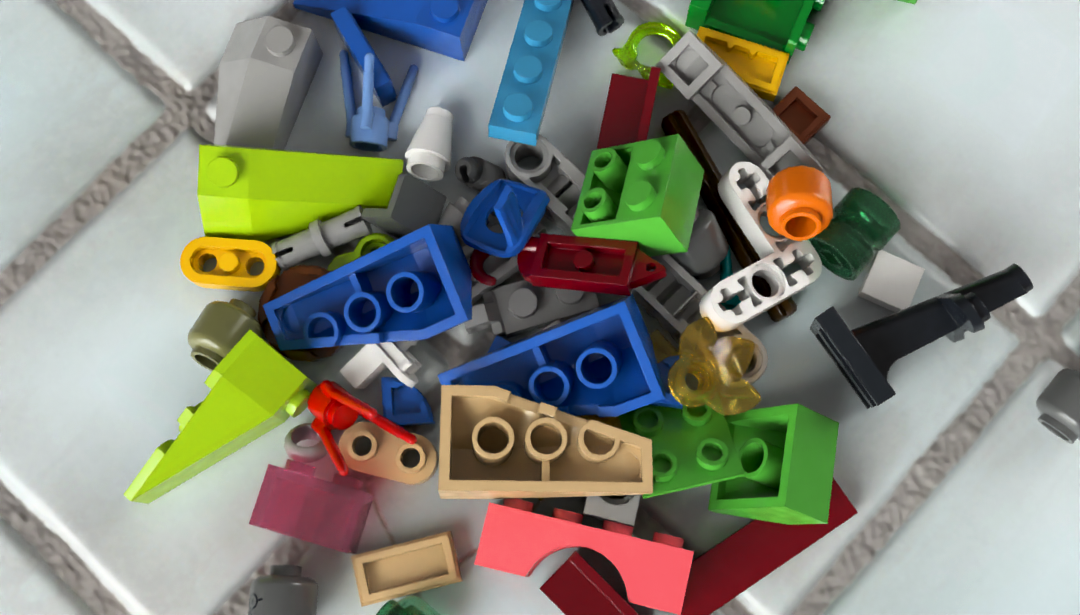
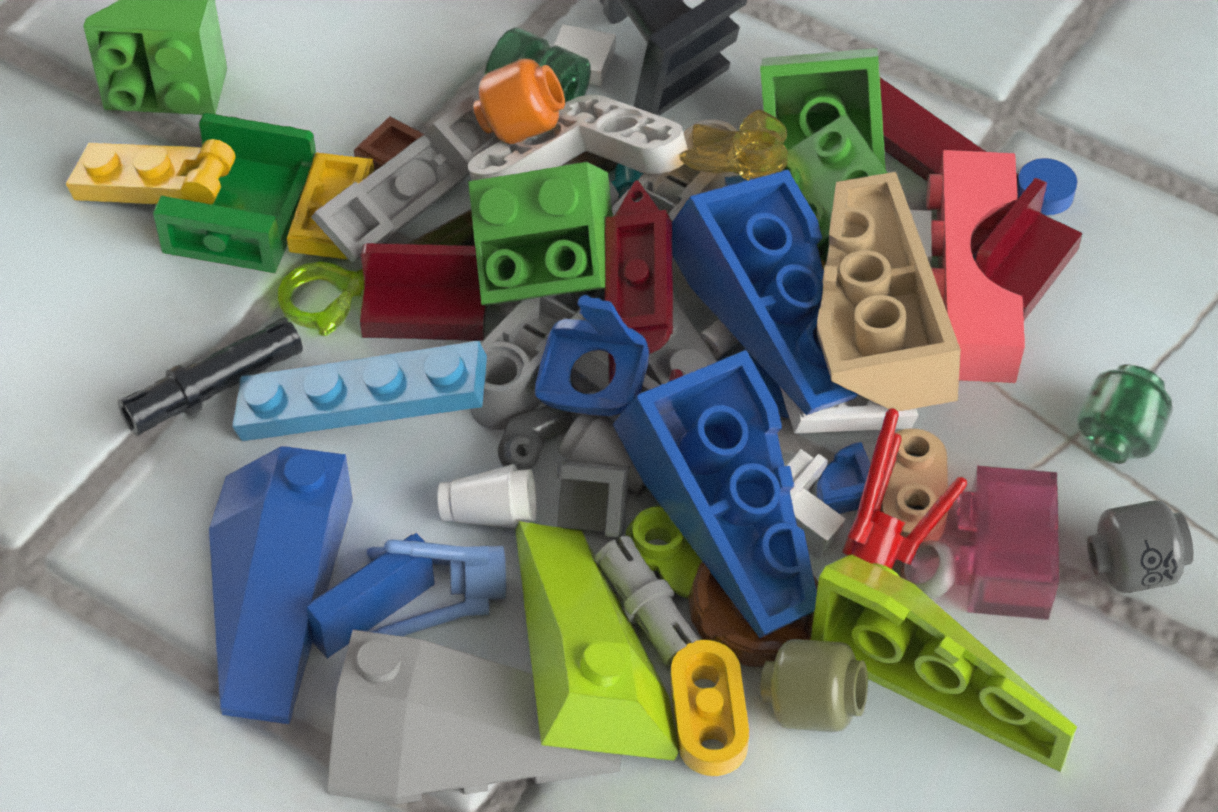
camera: 105 degrees left, 25 degrees down
(406, 568) = (1047, 440): tan tile -> none

